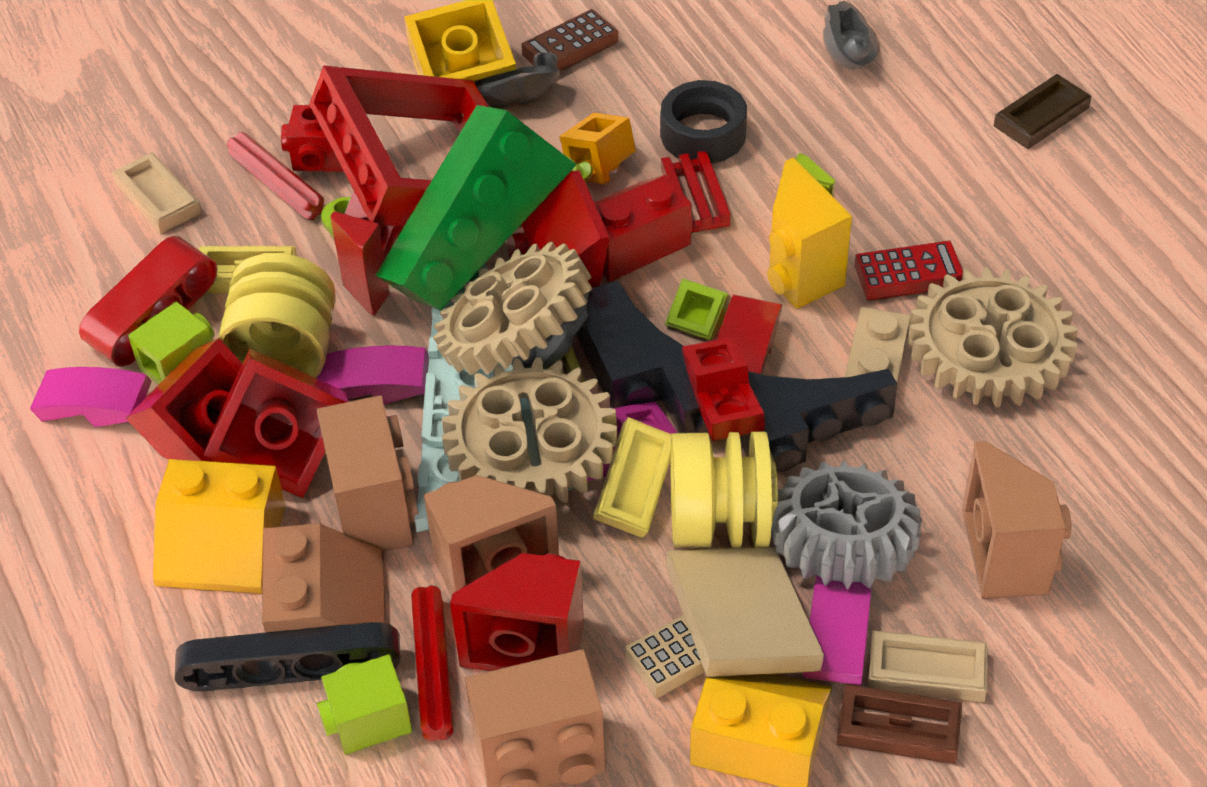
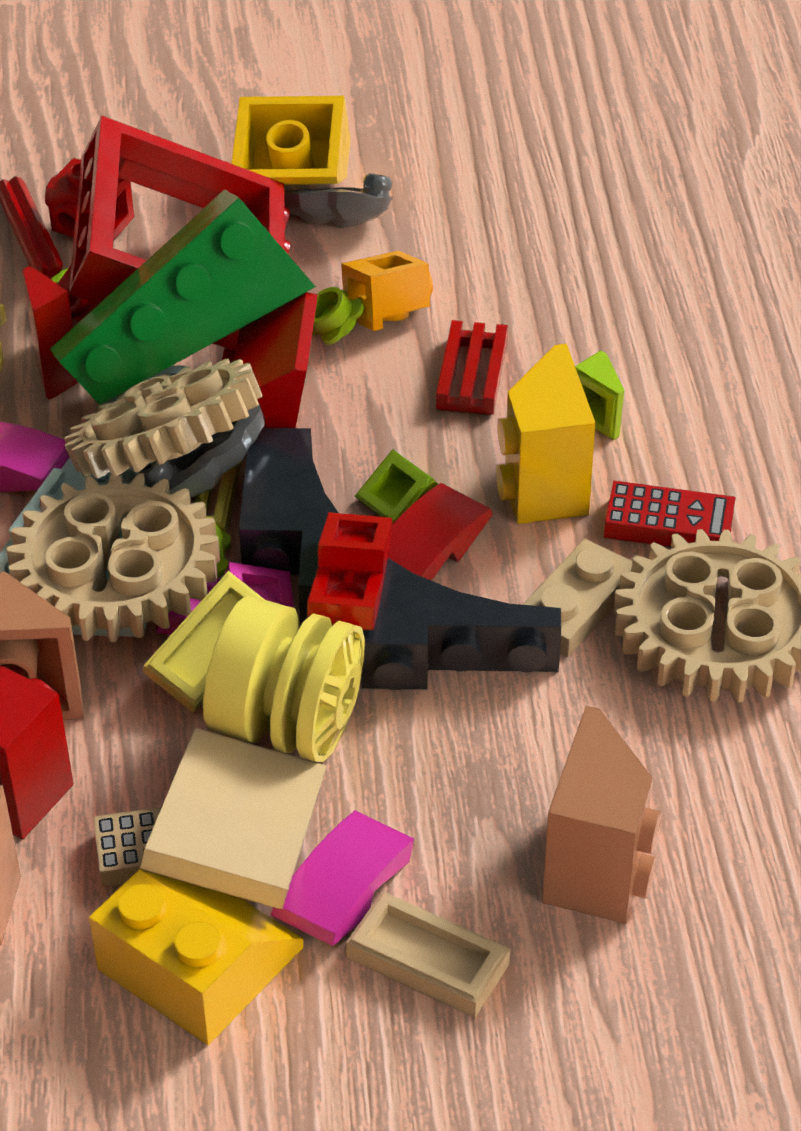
camera: 20 degrees right, 5 degrees down
(573, 39) = (432, 176): copper tile -> none
(644, 225) = (375, 383): red slope -> none
(708, 99) = (525, 269): black tyre -> none
(846, 524) = (413, 763): light grey gear -> none
(849, 36) = (747, 246): dark grey arm -> none
(898, 732) = (348, 1014): copper tile -> none

